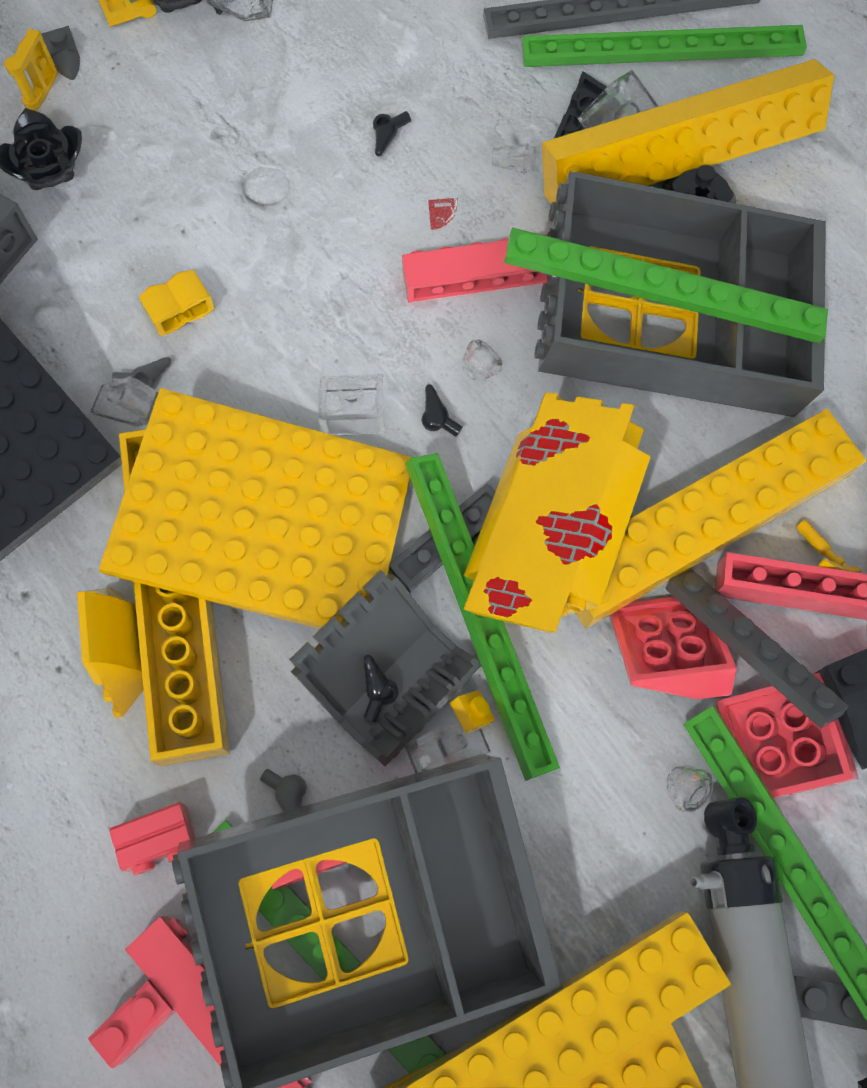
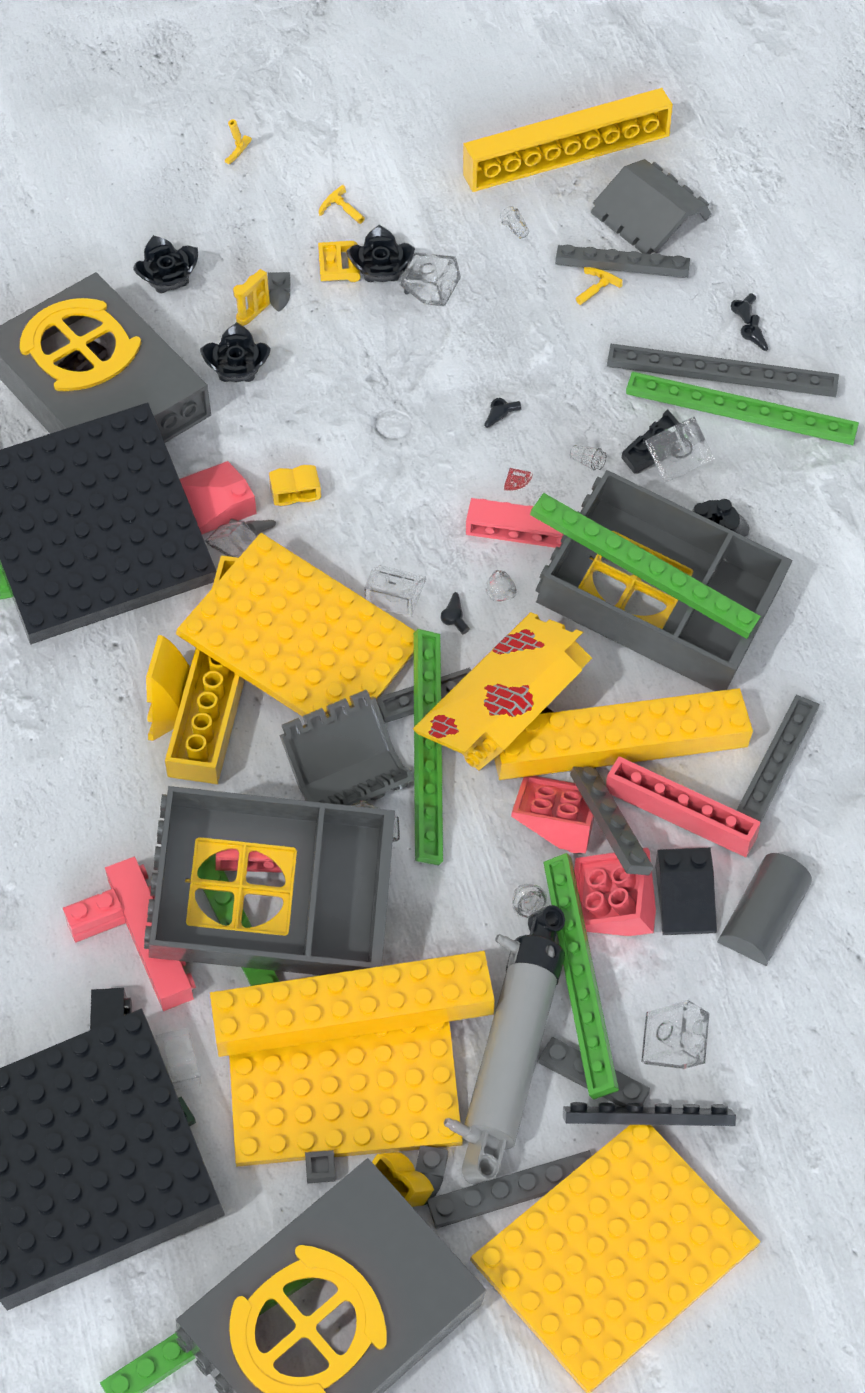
camera: 20 degrees right, 15 degrees down
(82, 348) = (218, 496): none -> coral slope
(151, 838) = (139, 815): coral brick -> none
(378, 689) = (336, 772): black animal -> none
(472, 711) = (400, 804): yellow plate -> none
(695, 130) = (733, 473): yellow brick -> none
(824, 549) = (697, 779): yellow piece -> none

